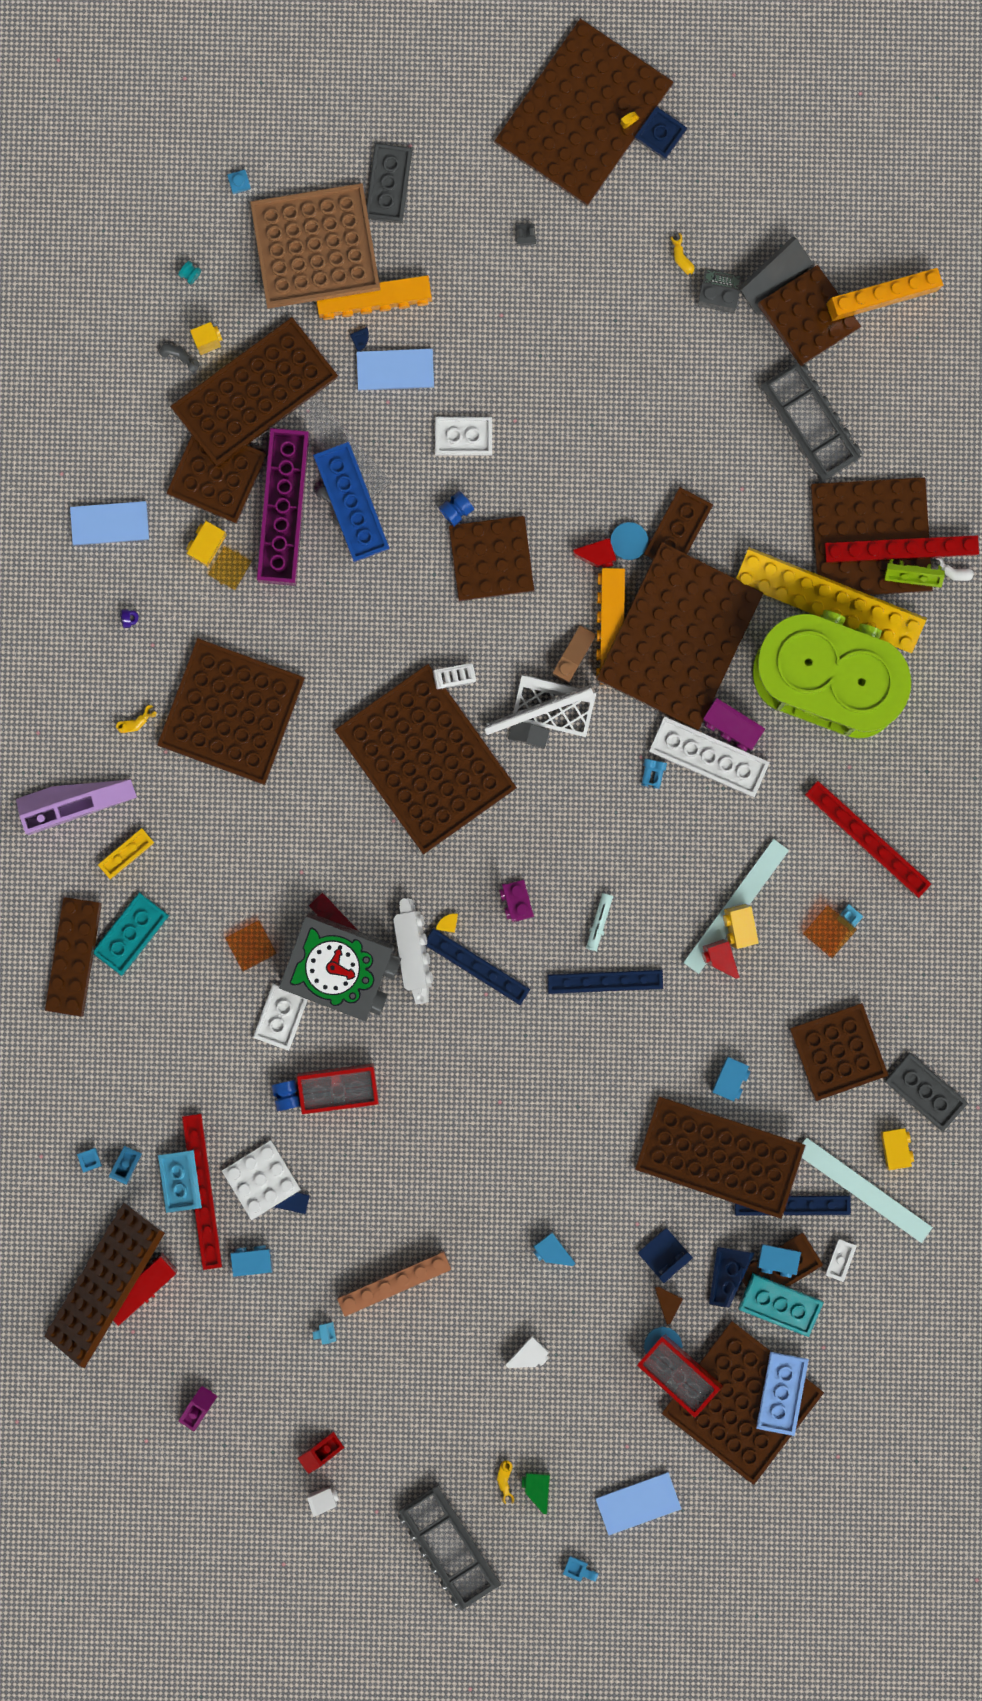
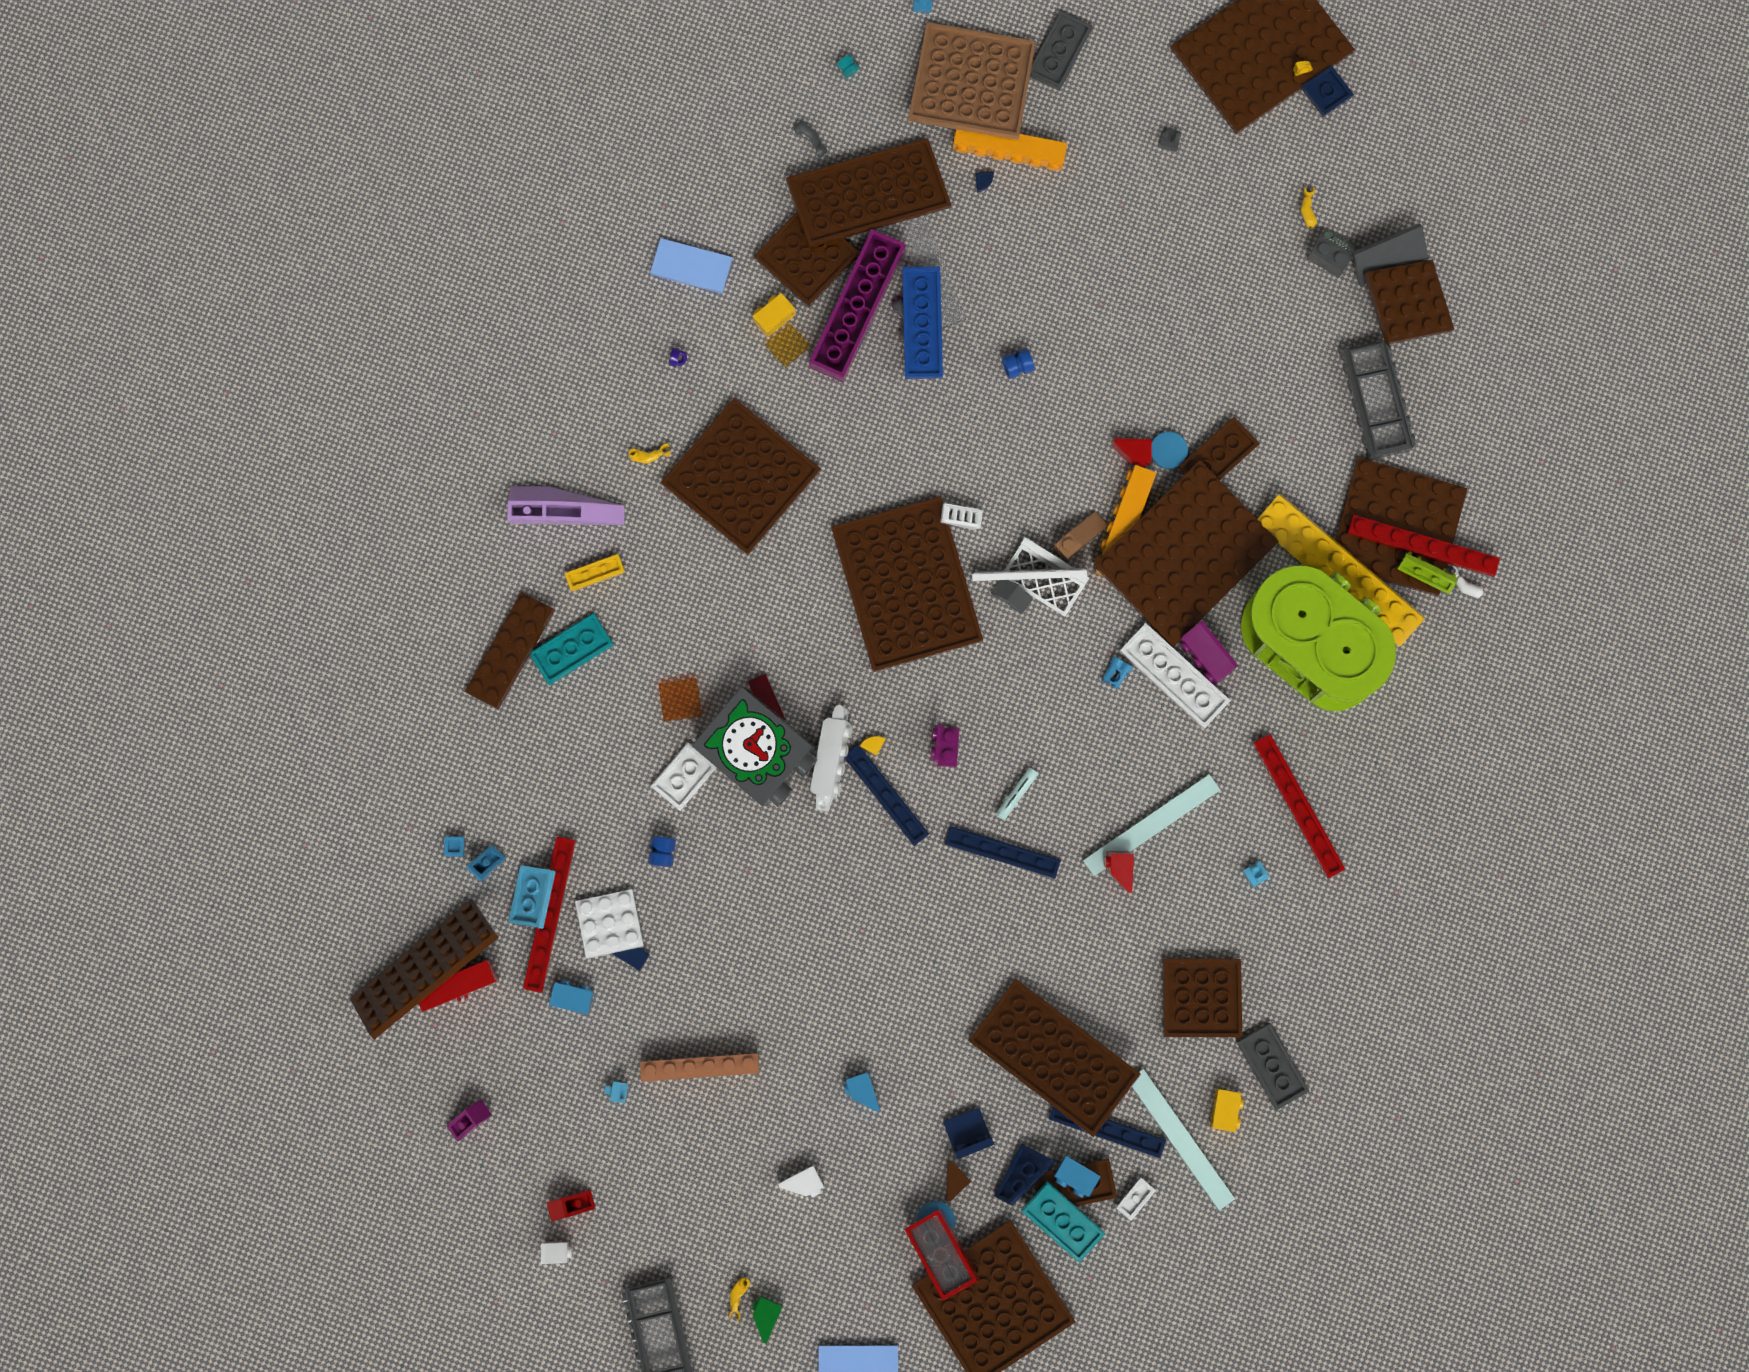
camera: 15 degrees right, 5 degrees down
(206, 338) = (842, 128): yellow brick -> none
(337, 1088) = (713, 862): clear brick -> none
(395, 369) = (1006, 219): light blue tile -> none
(463, 436) = (1048, 301): white tile -> none
(491, 558) = (1034, 421): reddish brown plate -> none
(730, 1079) = (1089, 987): dark azure brick -> none
(740, 926) = (1150, 844): yellow brick -> none
(782, 1393) = (1034, 1308): light blue tile -> none
(830, 931) = (1233, 880): clear orange tile -> none
(884, 294) = (1486, 306): light orange brick -> none

